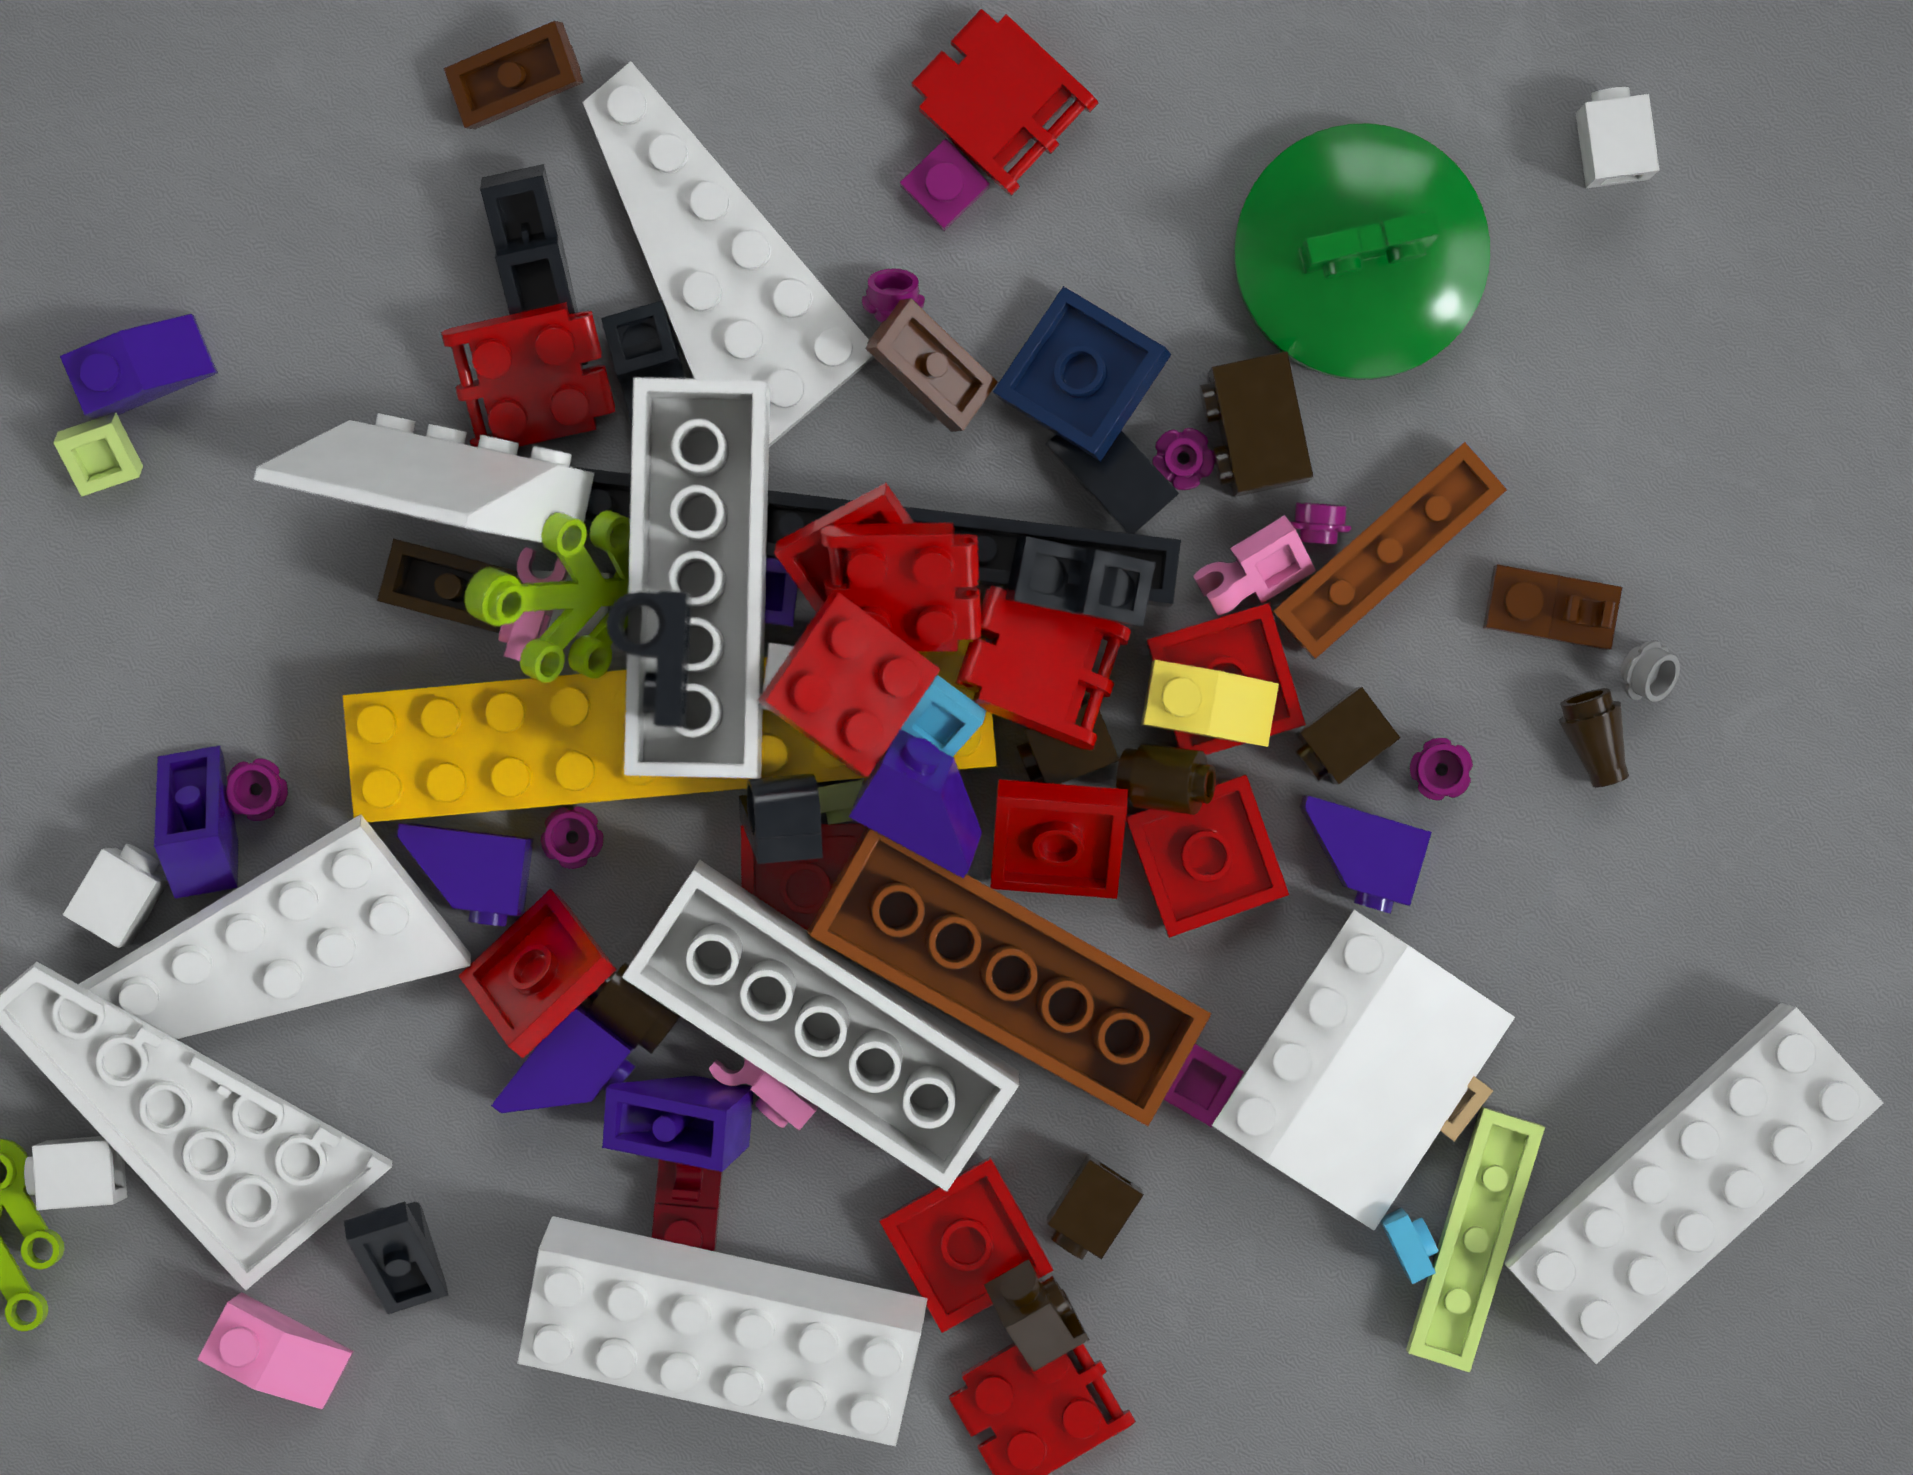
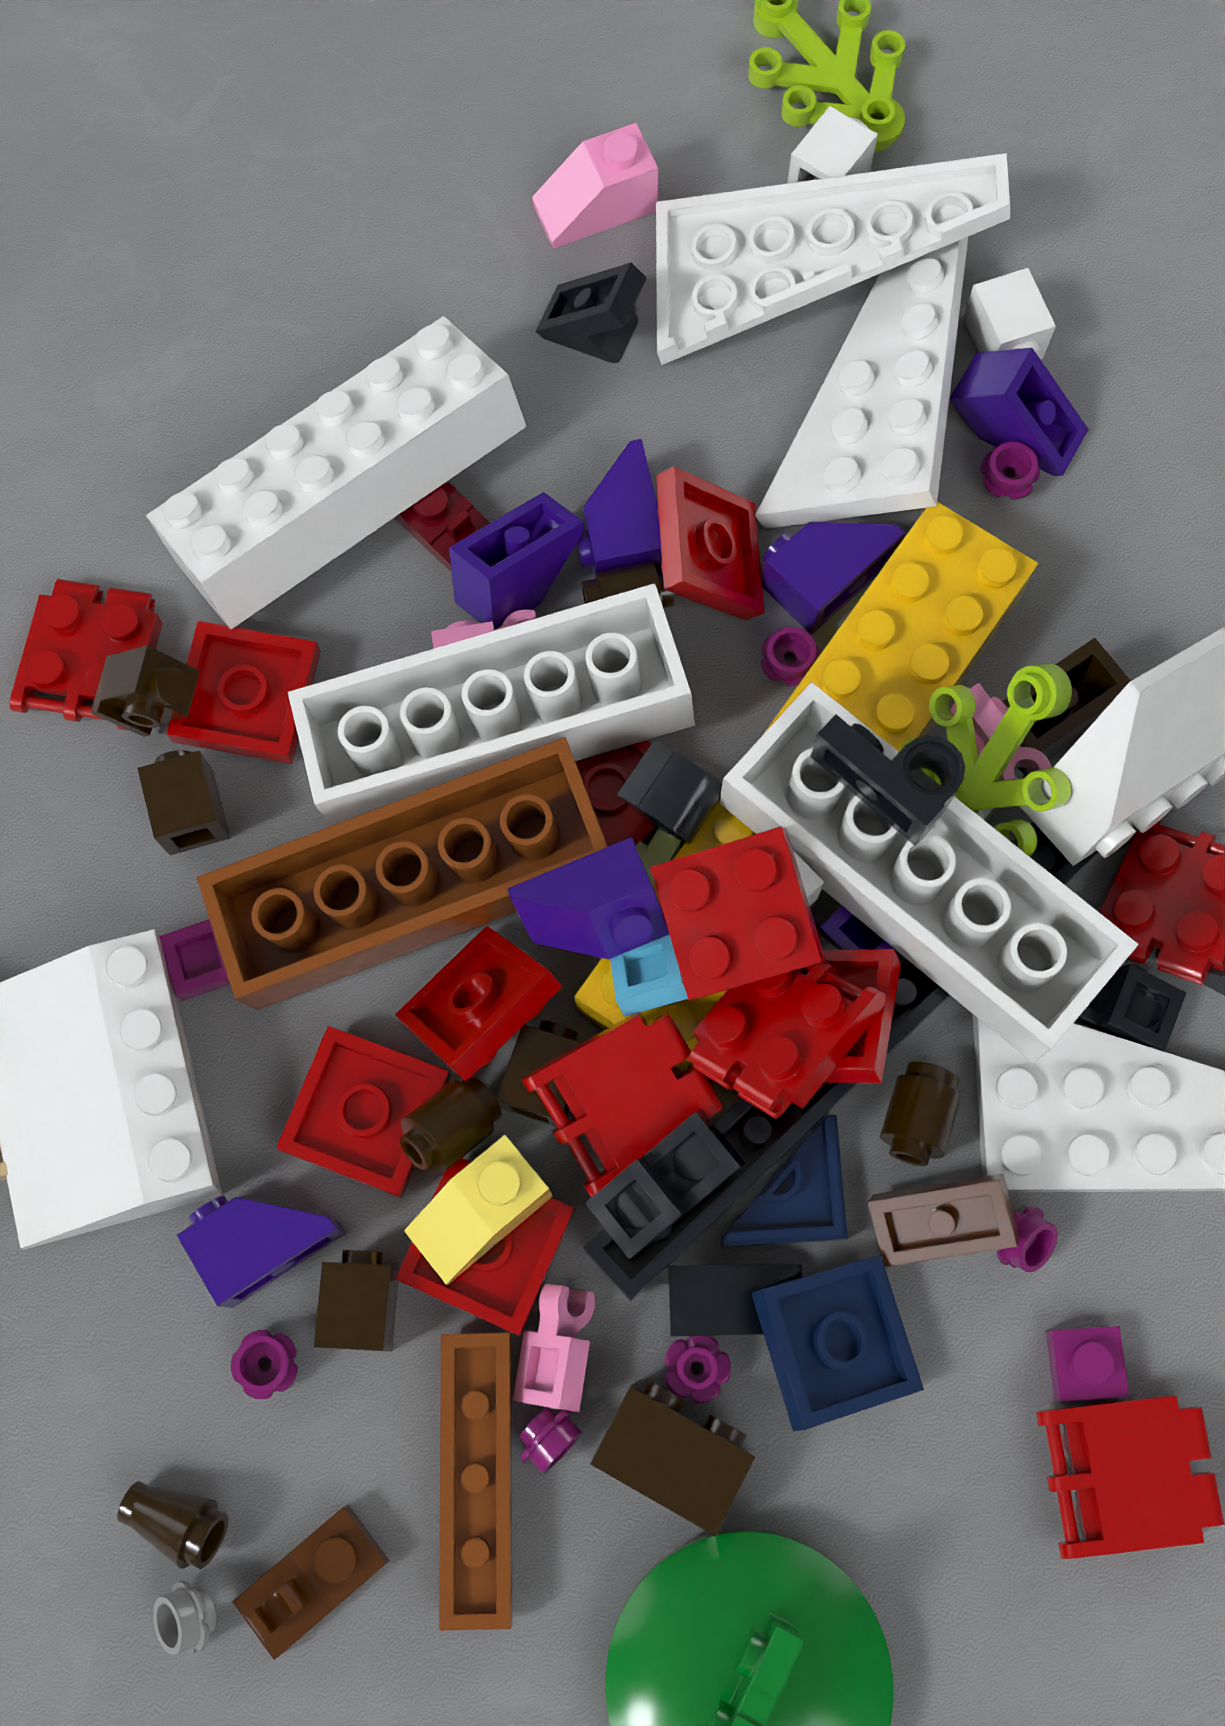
camera: 135 degrees right, 15 degrees down
(862, 443) = (921, 1113): none -> dark brown brick
(999, 481) = (801, 1200): none -> dark blue tile

